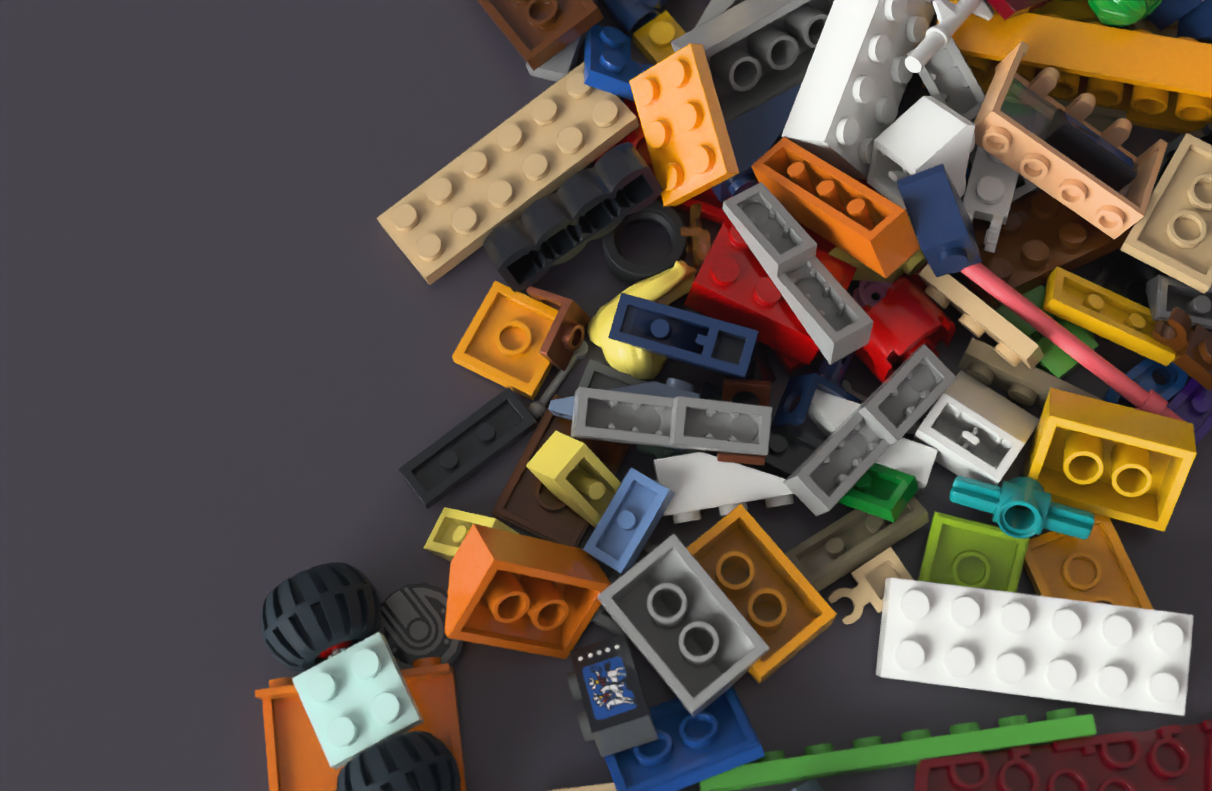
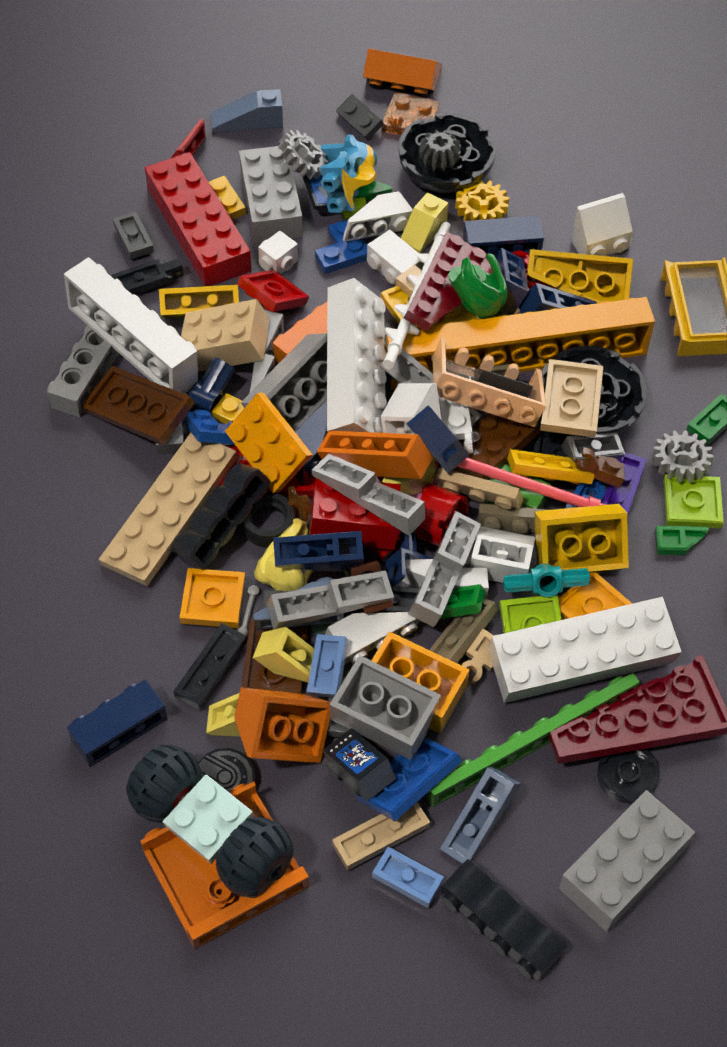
camera: 30 degrees left, 15 degrees down
(301, 486) = (117, 722): none -> dark blue brick
(567, 329) = (244, 577): copper bracket -> none

